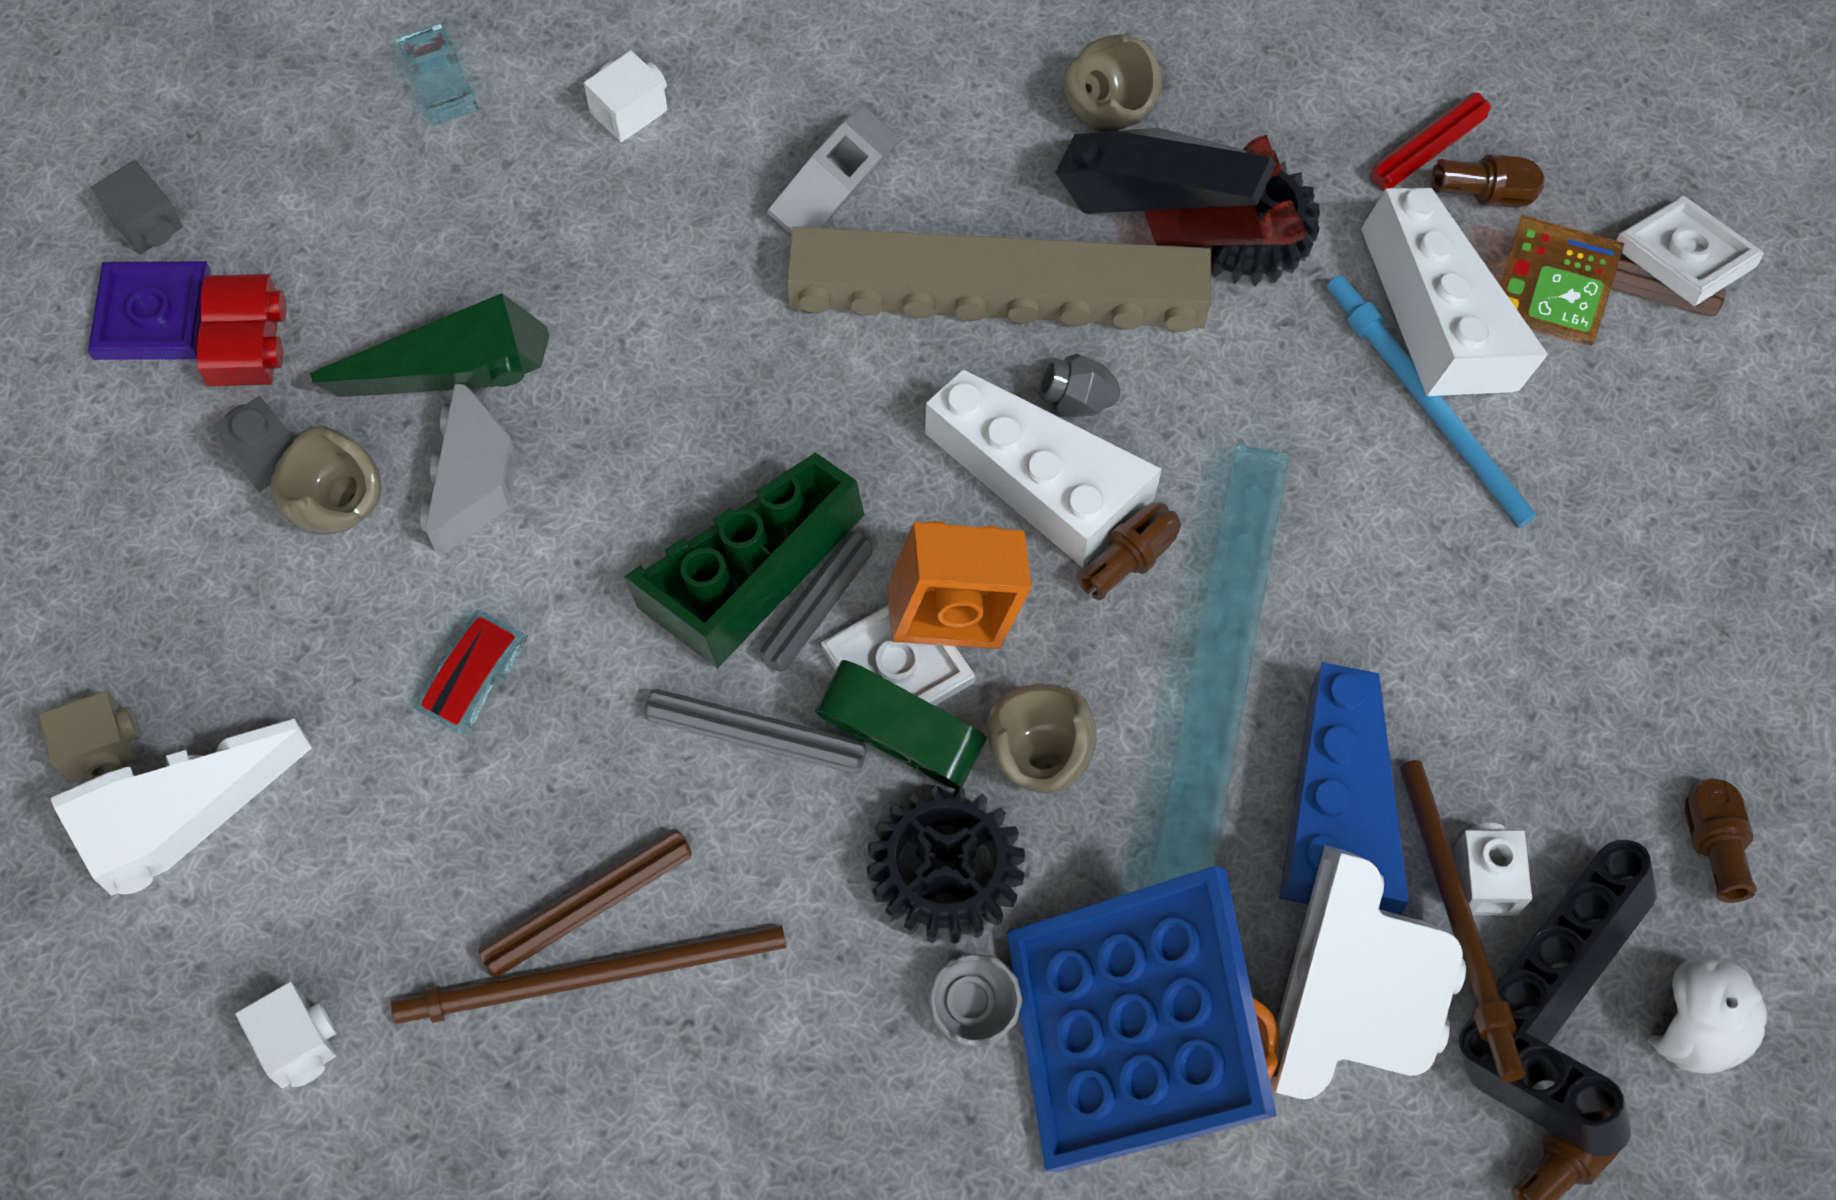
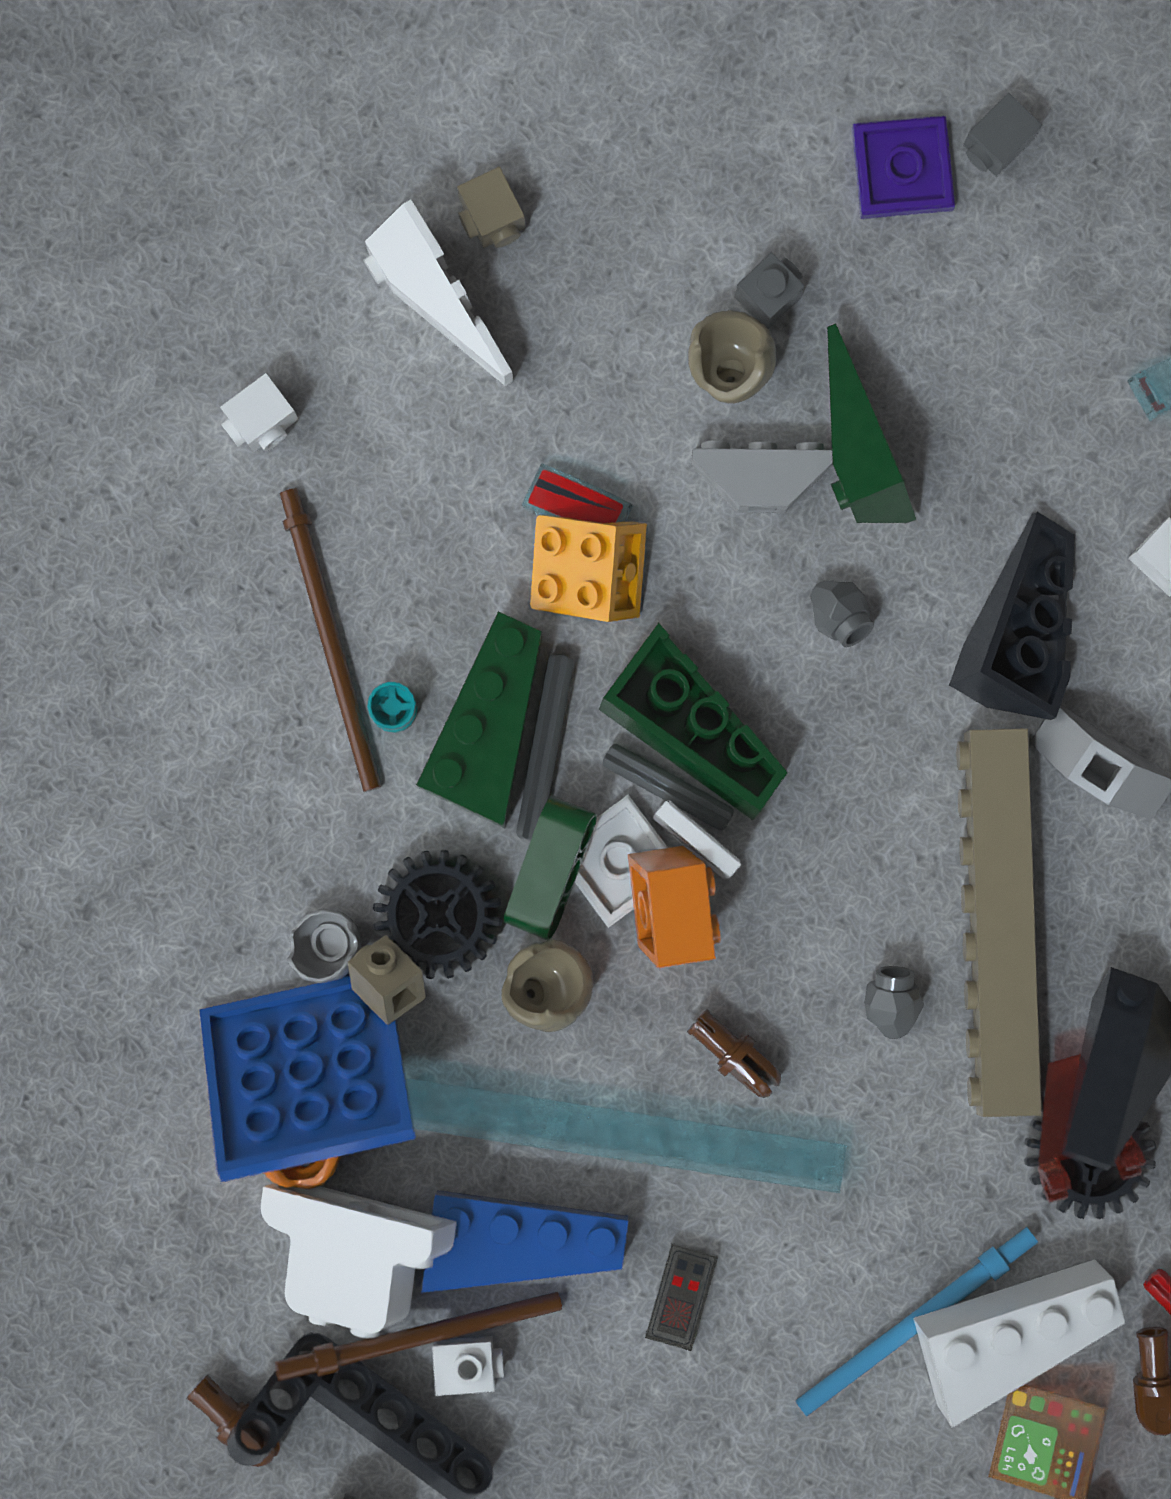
camera: 85 degrees right, 20 degrees up
(239, 330) = (884, 251): red brick -> none
(545, 664) = (588, 568): none -> light orange bracket
(584, 902) = (387, 628): reddish brown axle -> none
(638, 404) = (841, 612): none -> dark grey rock
(684, 885) = (390, 699): none -> teal wheel
(696, 242) = (1019, 639): none -> black wedge
(726, 788) = (484, 732): none -> dark green wedge
(868, 567) = (697, 840): none -> white tile
(1022, 917) = (386, 979): none -> dark tan brick
(1040, 464) = (805, 976): white wedge -> none
(1405, 633) = (681, 1296): none -> clear smoke tile

